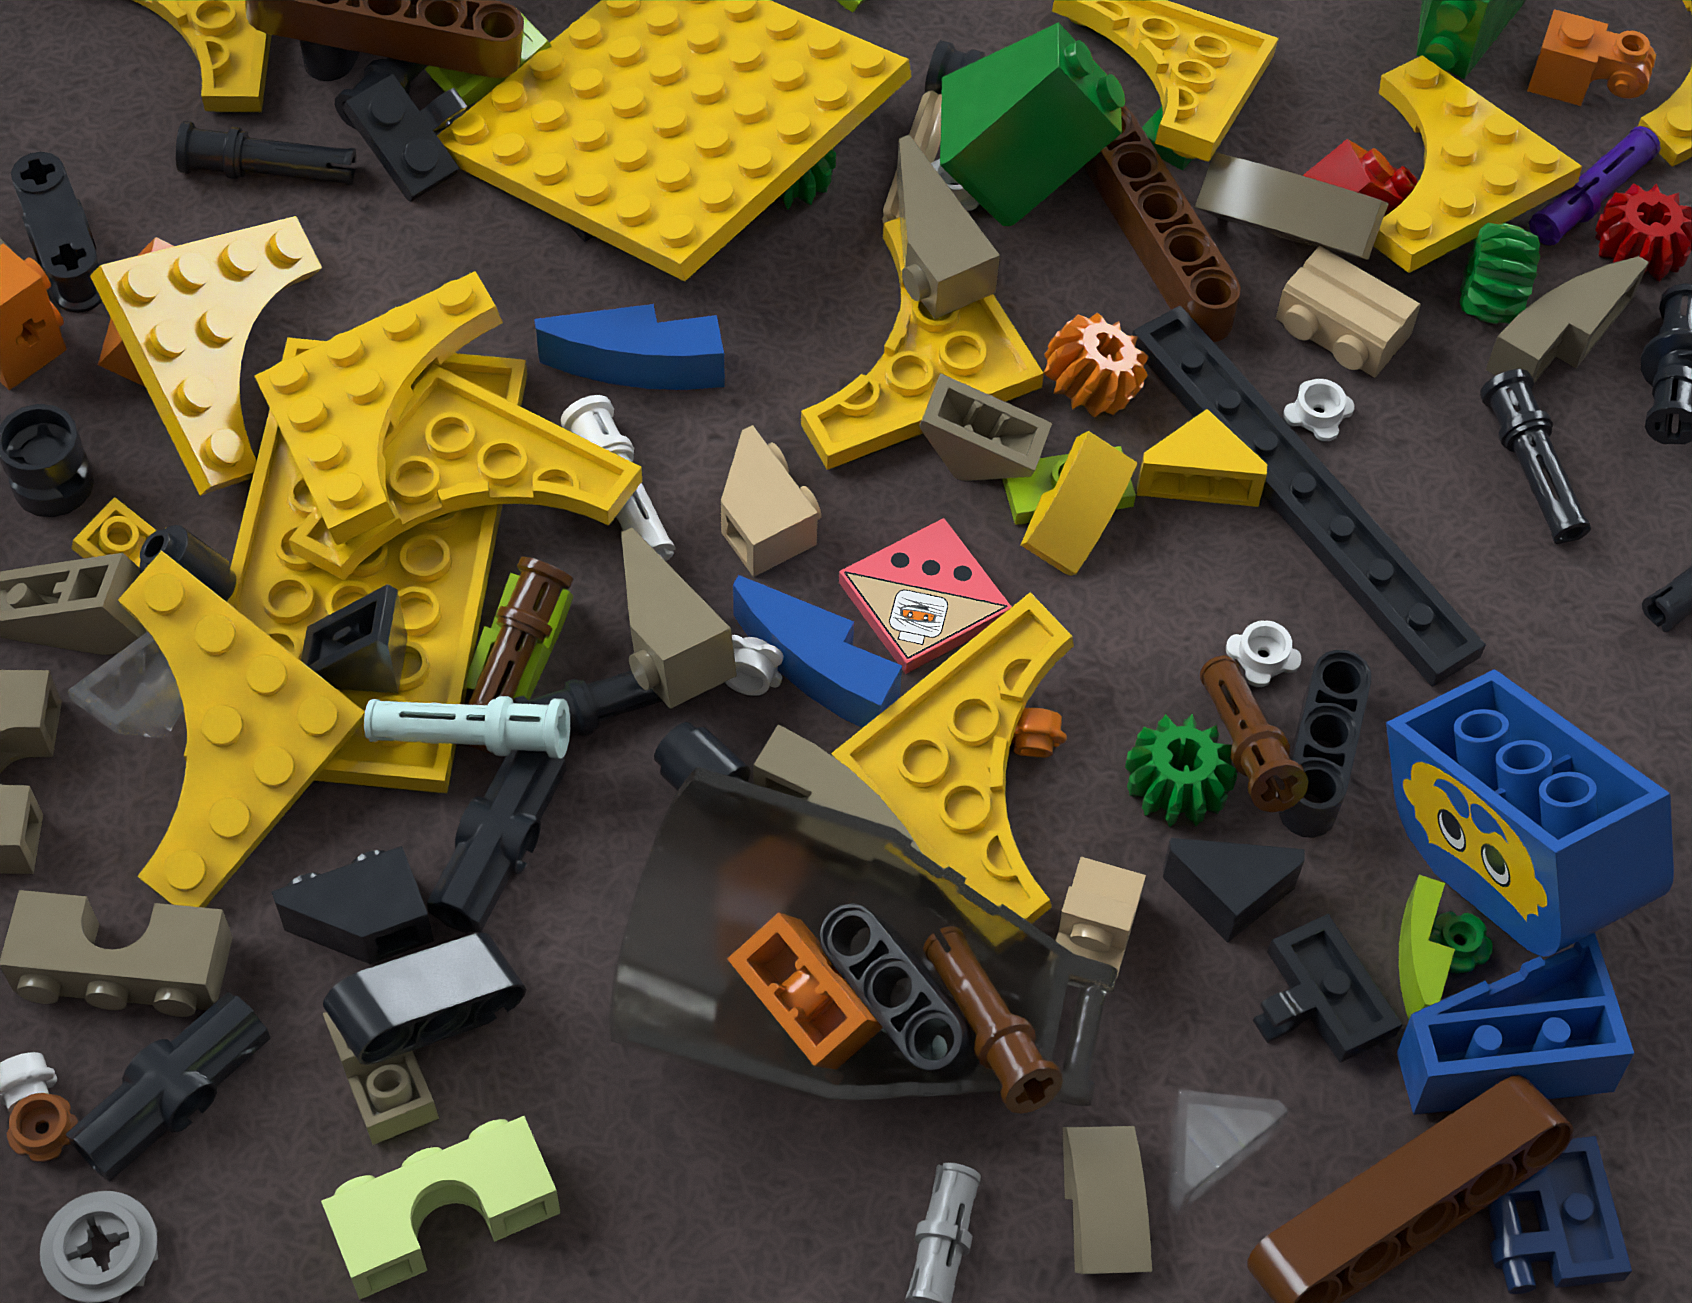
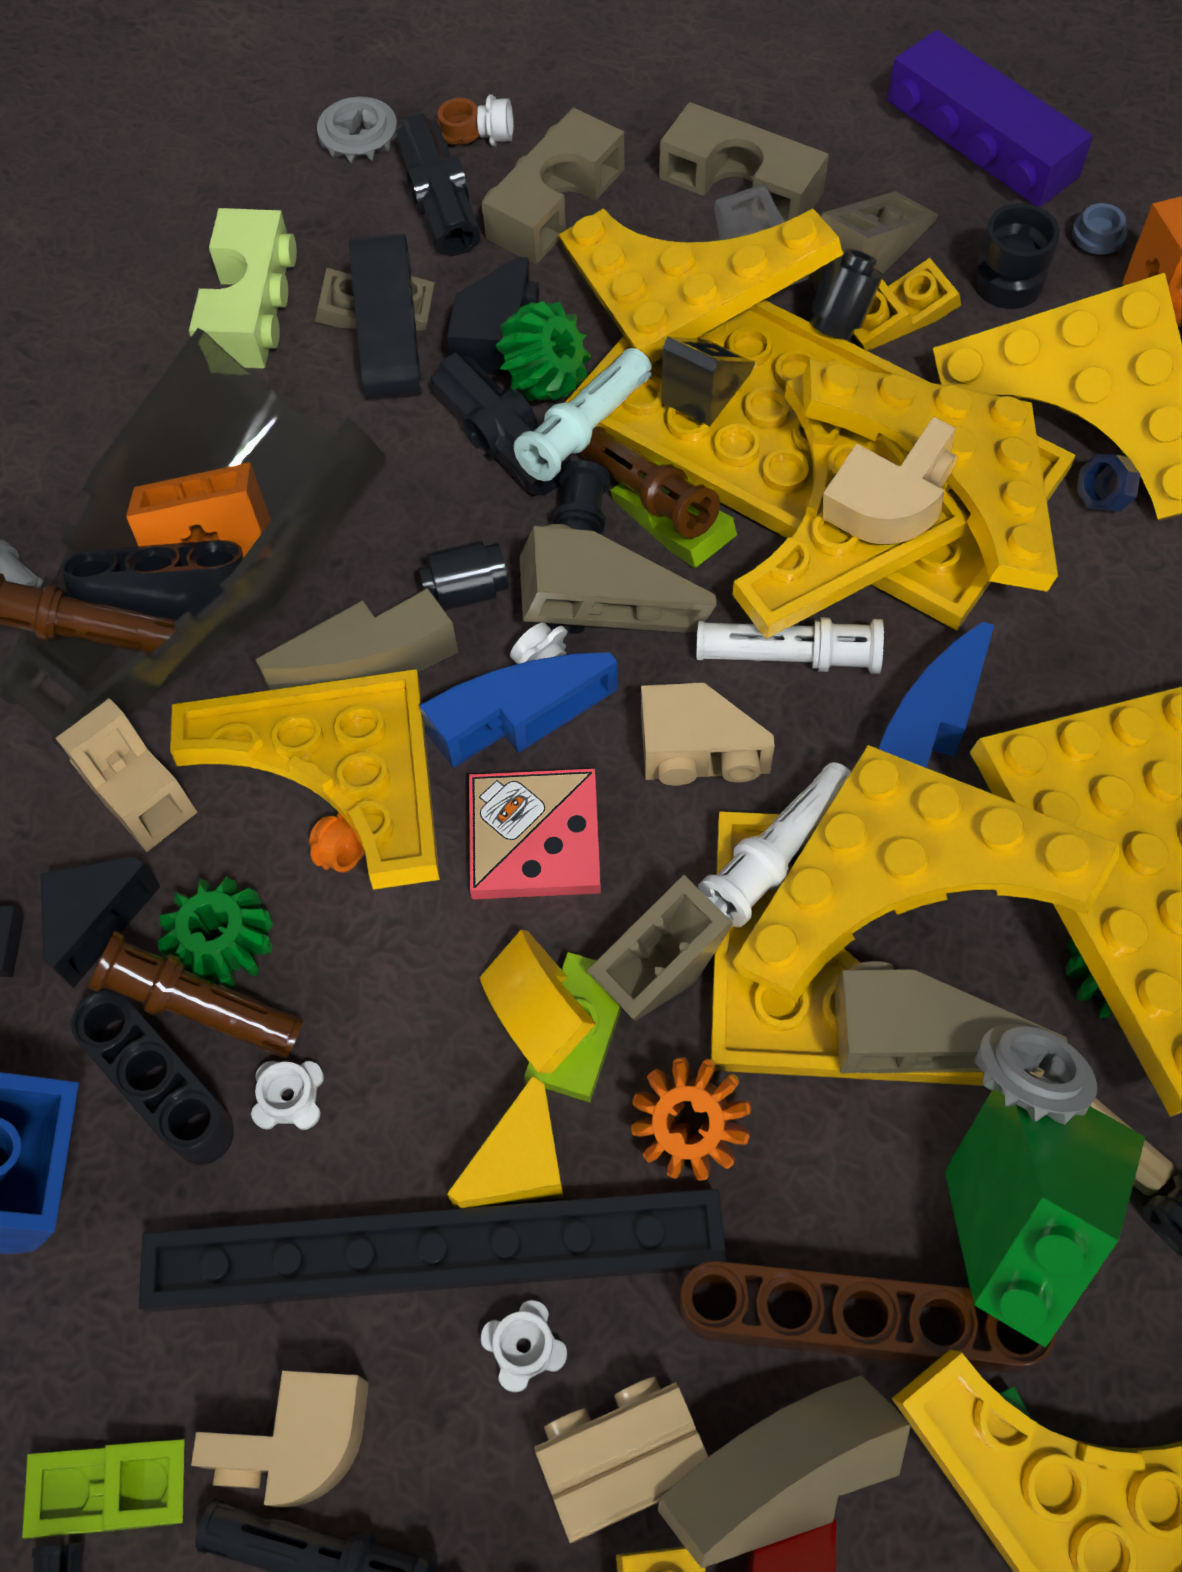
camera: 125 degrees right, 5 degrees up
(304, 308) = (1108, 482): none -> dark blue tile
(404, 806) = (543, 351): none -> green gear
(468, 393) = (888, 500): none -> tan brick
(801, 294) = (905, 842): none -> yellow plate
(866, 399) = (763, 860): none -> white pin
(940, 116) = (1015, 1050): none -> light grey gear
(1488, 491) = (311, 1446): none -> tan brick
(1596, 606) = (104, 1489): none -> lime slope

